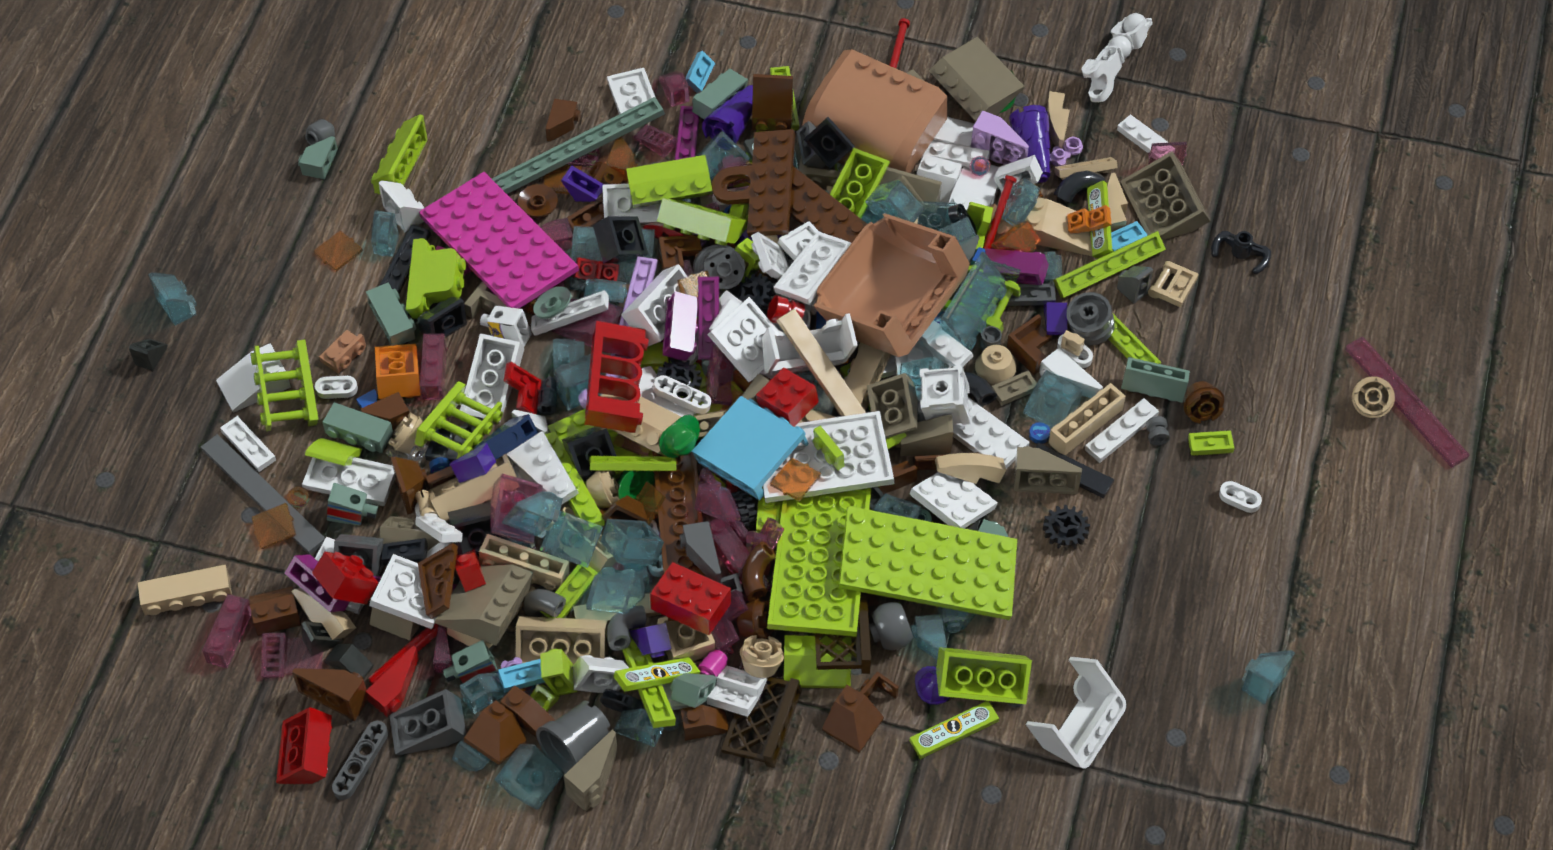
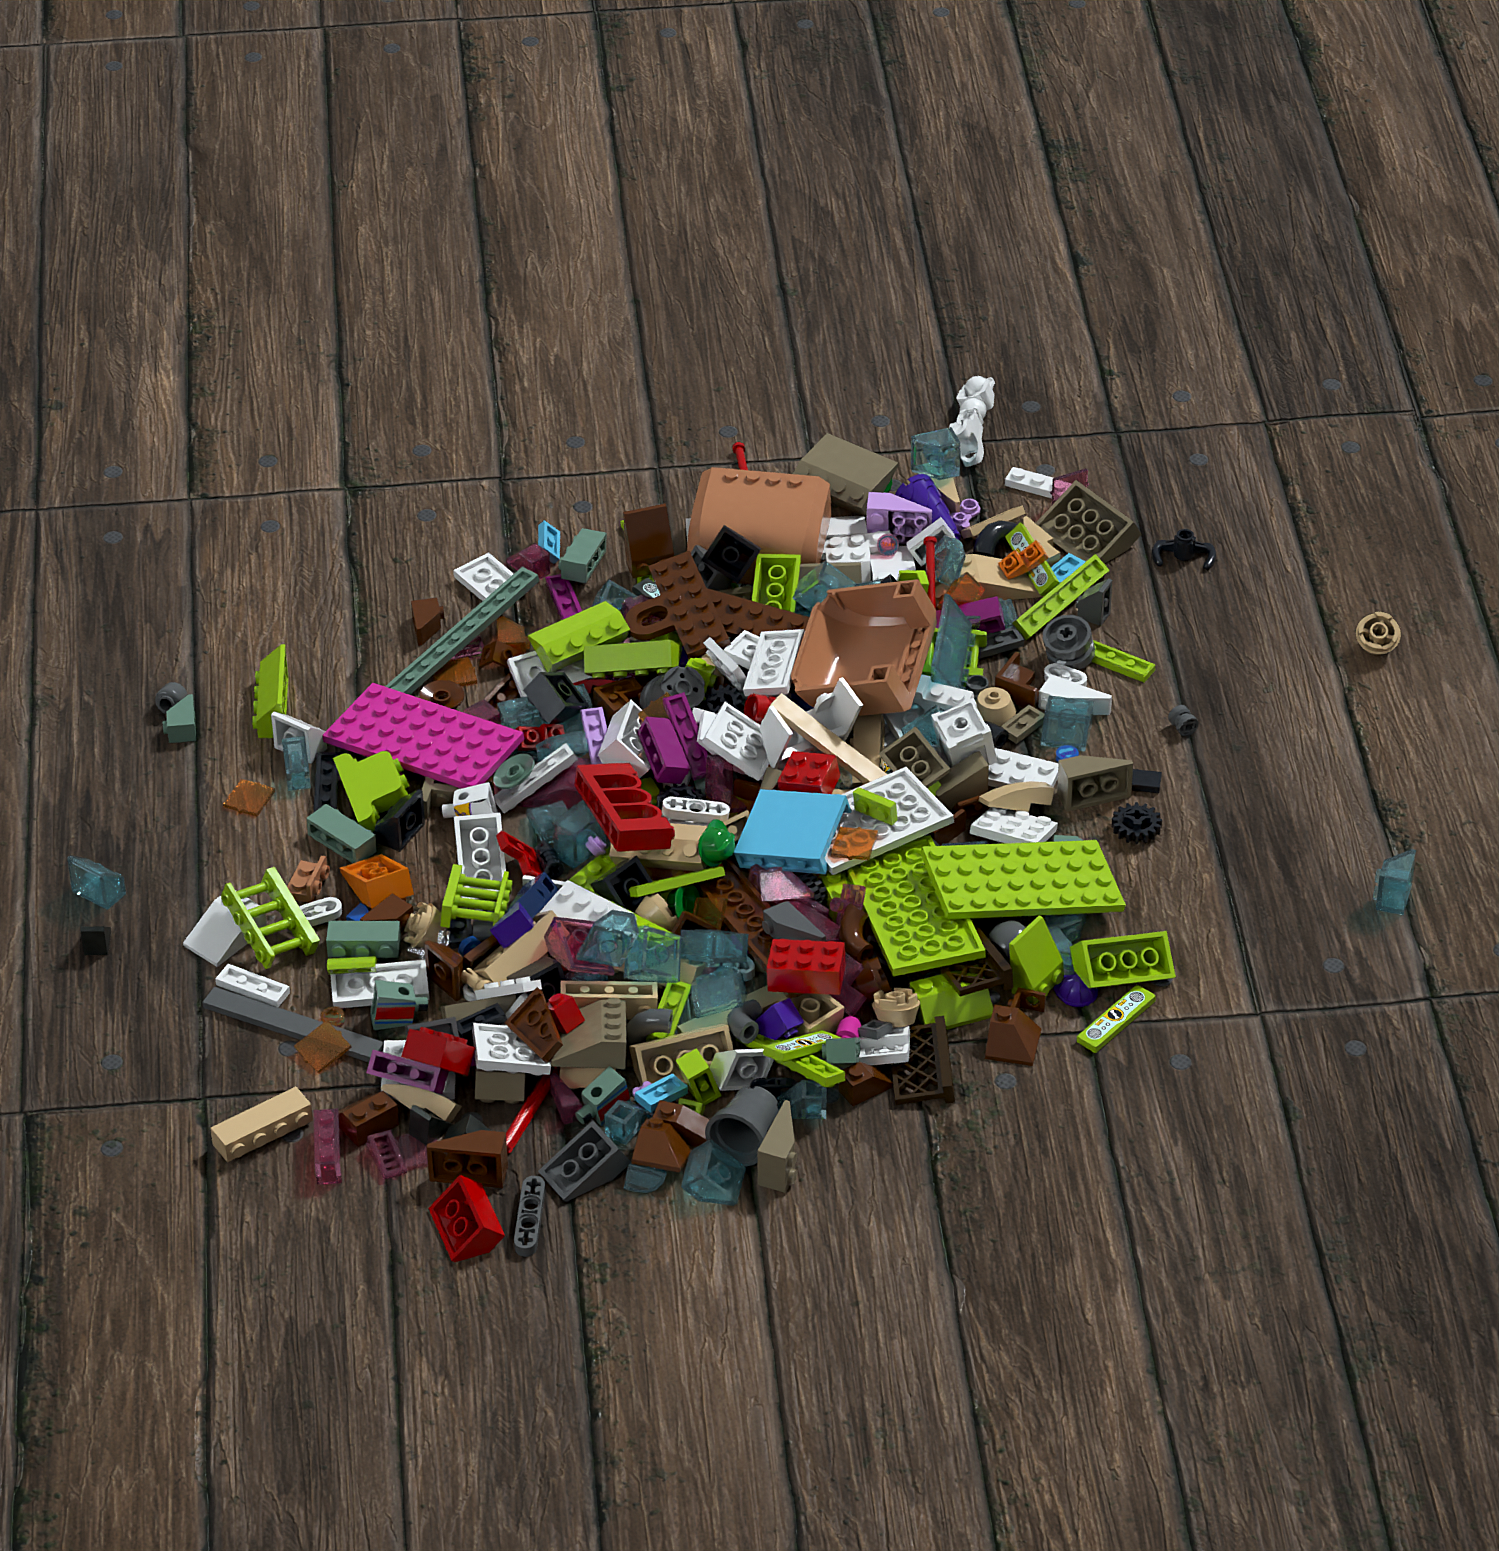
camera: 20 degrees left, 15 degrees down
(392, 686) = (527, 1147): red slope -> none
(433, 366) = (410, 854): clear pink brick -> none
(581, 186) = (483, 669): dark purple slope -> none
(661, 149) = (540, 613): clear pink slope -> none
(730, 116) = (606, 565): dark purple cone -> none
(734, 673) = (875, 1029): none -> dark grey tile
(901, 652) = (1035, 959): none -> lime slope
(1055, 318) = (1032, 652): dark purple slope -> none
(1059, 88) = (936, 454): none -> clear light blue slope
(1072, 342) = (1062, 667): tan plate -> none
(1086, 419) = (1111, 725): tan brick -> none
(1091, 719) = (1246, 968): white windscreen -> none
(1121, 430) = (1146, 732): white plate -> none
(1155, 379) = (1159, 678): sand green brick -> none
(1179, 286) = (1139, 600): tan plate -> none
(1203, 402) = (1216, 682): reddish brown cone -> none
(1211, 443) = (1240, 717): lime plate -> none
(1240, 496) = (1292, 752): white plate -> none
(1409, 403) = (1416, 636): clear pink tile -> none

